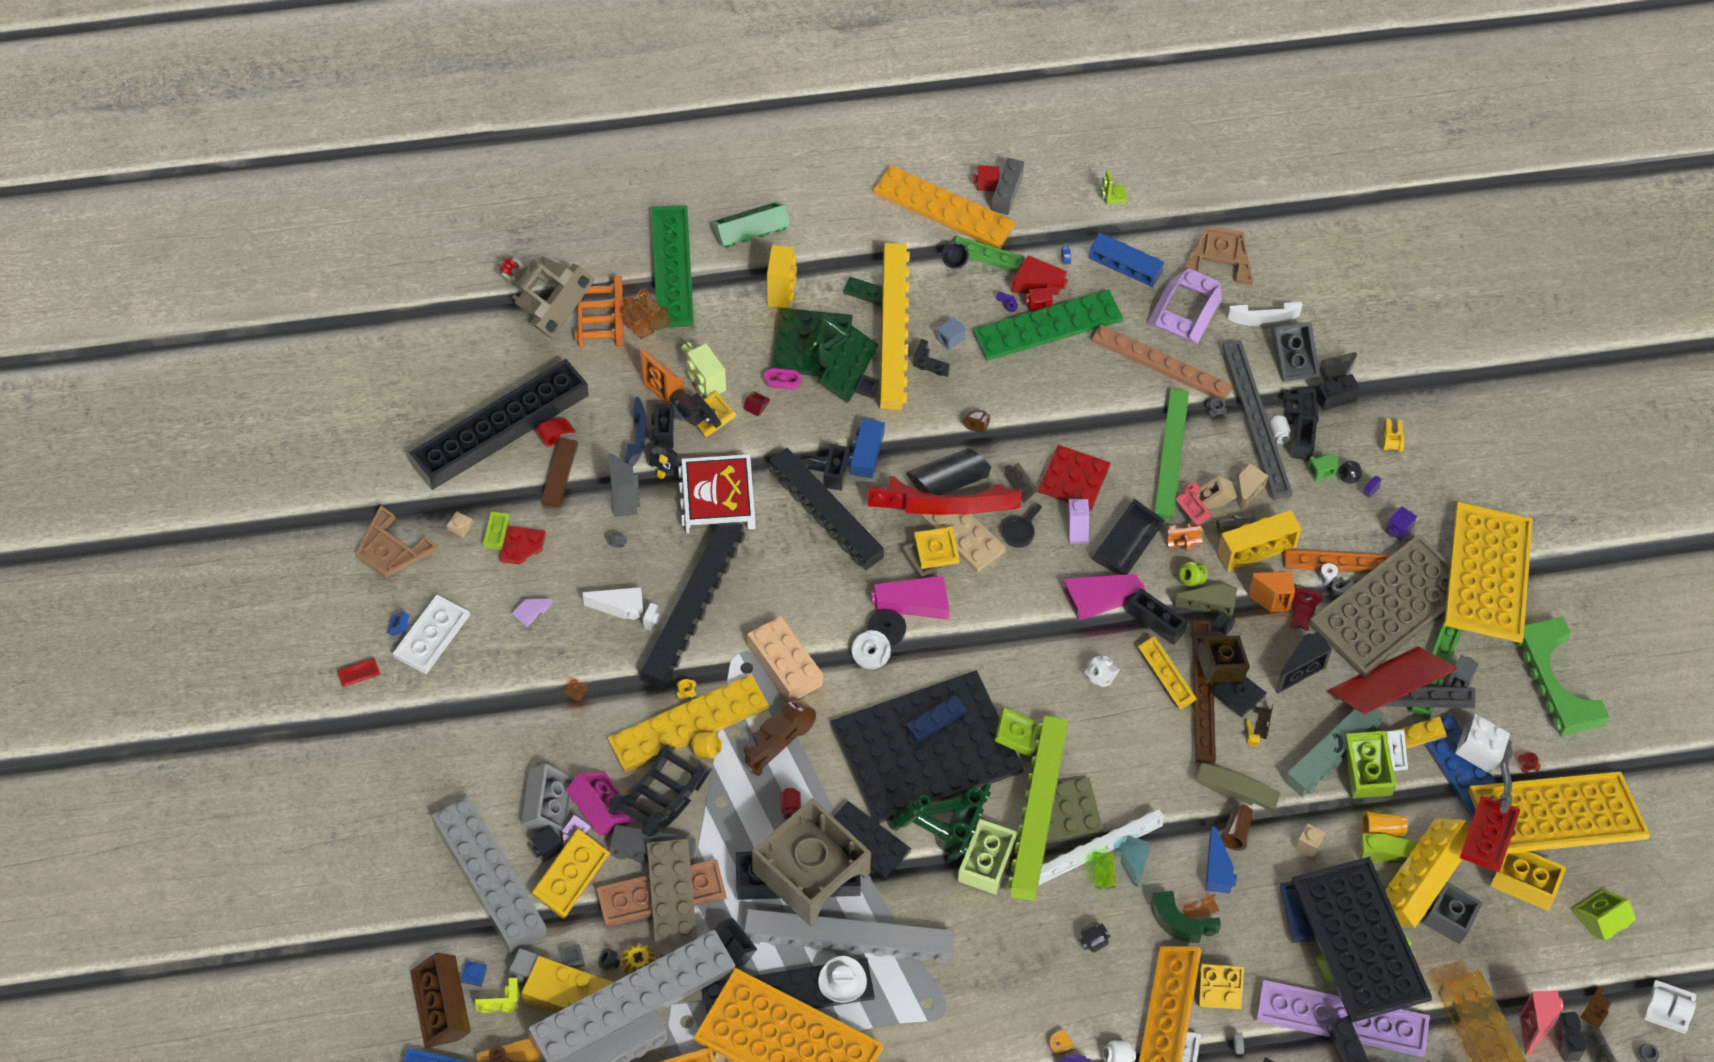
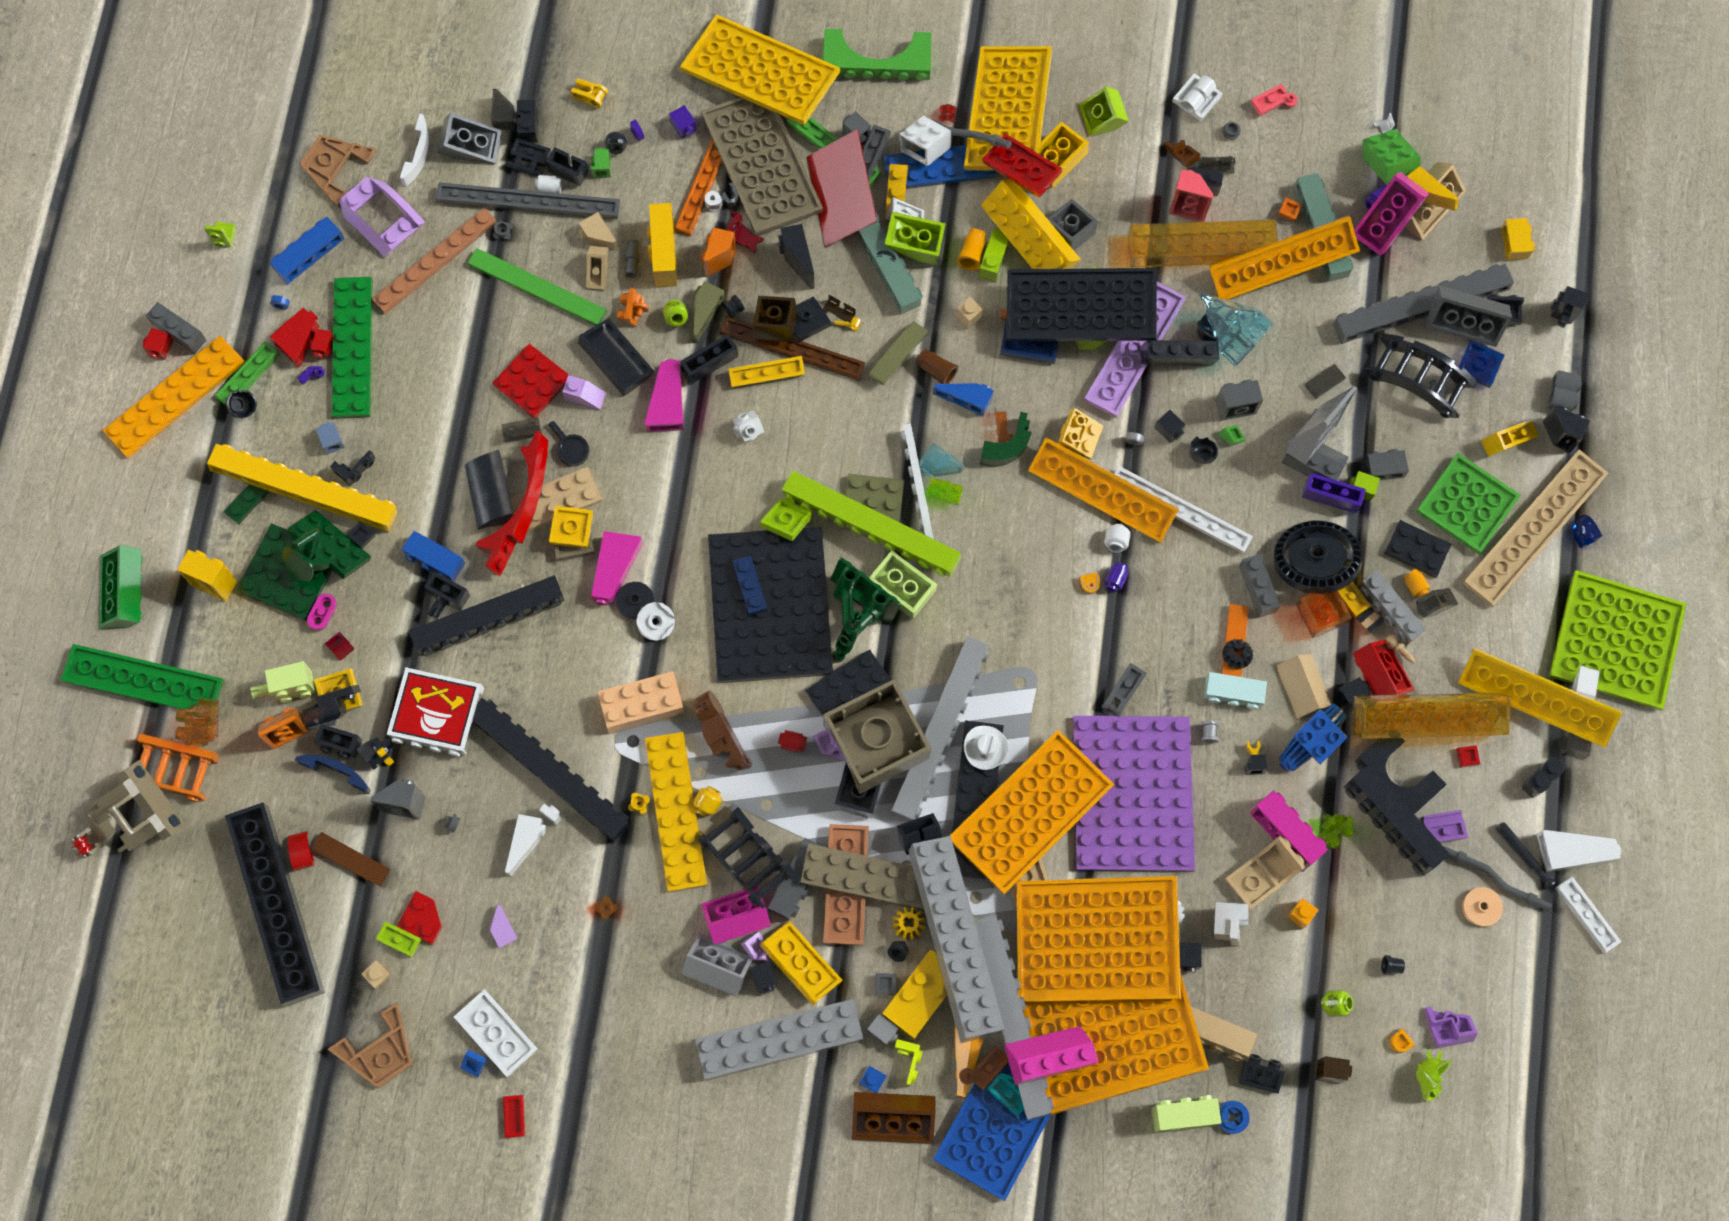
camera: 75 degrees left, 15 degrees up
(977, 421) = (438, 446): reddish brown piece -> none
(1094, 937) = (1004, 521): black head -> none
(1193, 505) = (602, 288): coral hinge -> none

